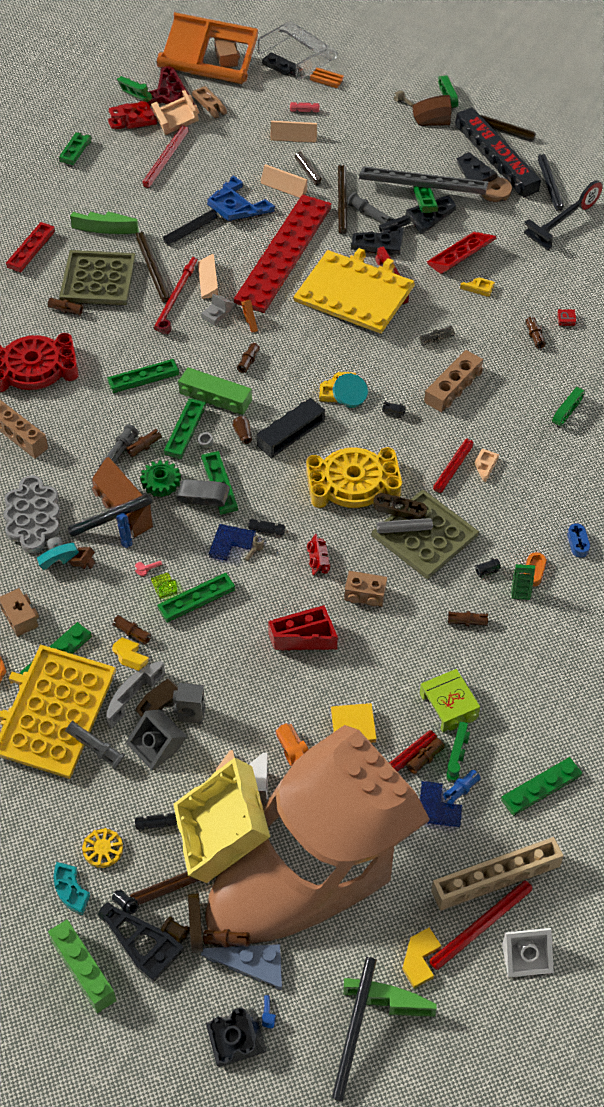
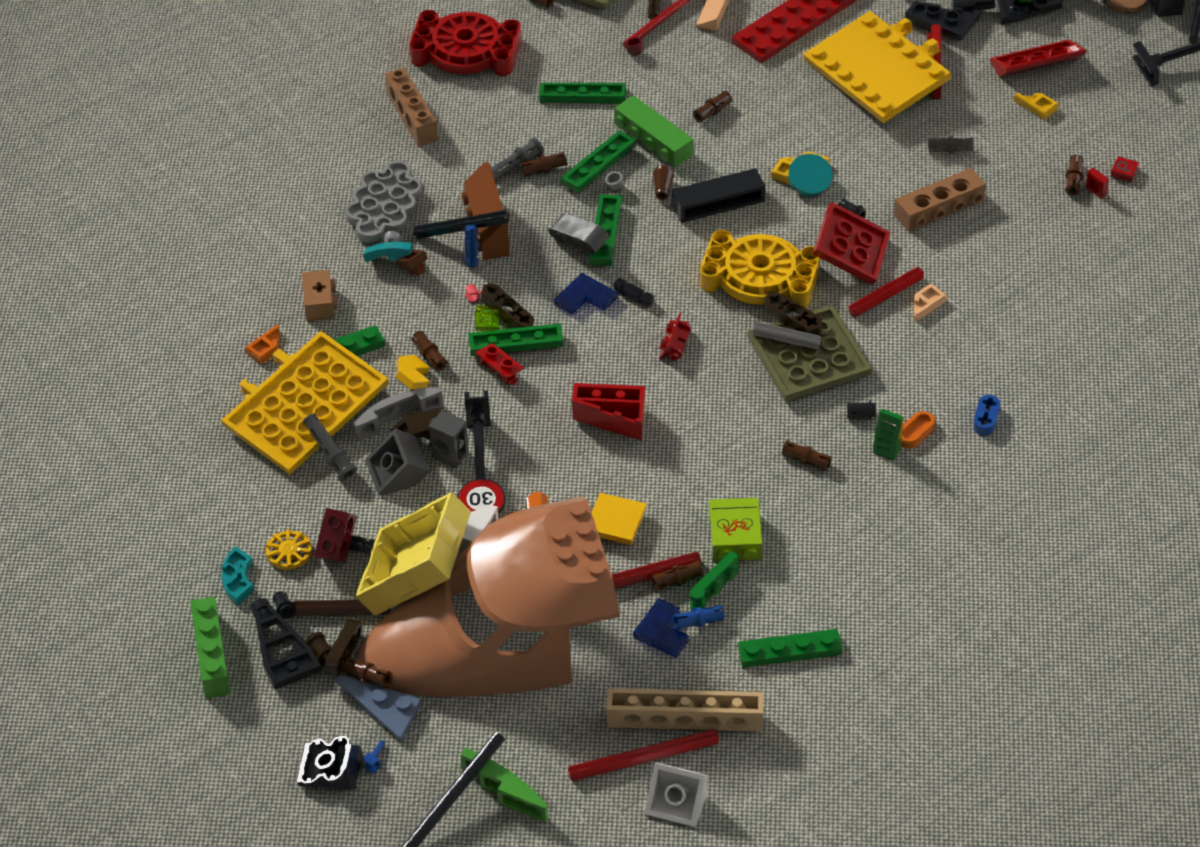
camera: 25 degrees right, 5 degrees down
(141, 824) = (335, 535): none -> dark red brick
(160, 478) = (541, 206): green gear -> none
(173, 566) = (495, 297): none -> dark brown beam
(193, 620) = (500, 362): none -> red hinge
(218, 310) = (709, 44): light grey slope -> none
(237, 741) = (481, 491): none -> piece
(249, 315) = (739, 60): orange tile -> none
(257, 546) = (613, 309): dark tan hand -> none
(365, 588) = (707, 388): medium nougat brick -> none
(412, 435) = (851, 243): none -> red plate
(414, 965) = (563, 753): yellow tile -> none
(556, 334) = (1097, 183): none -> red tile
(568, 406) = (1063, 267): green beam -> none

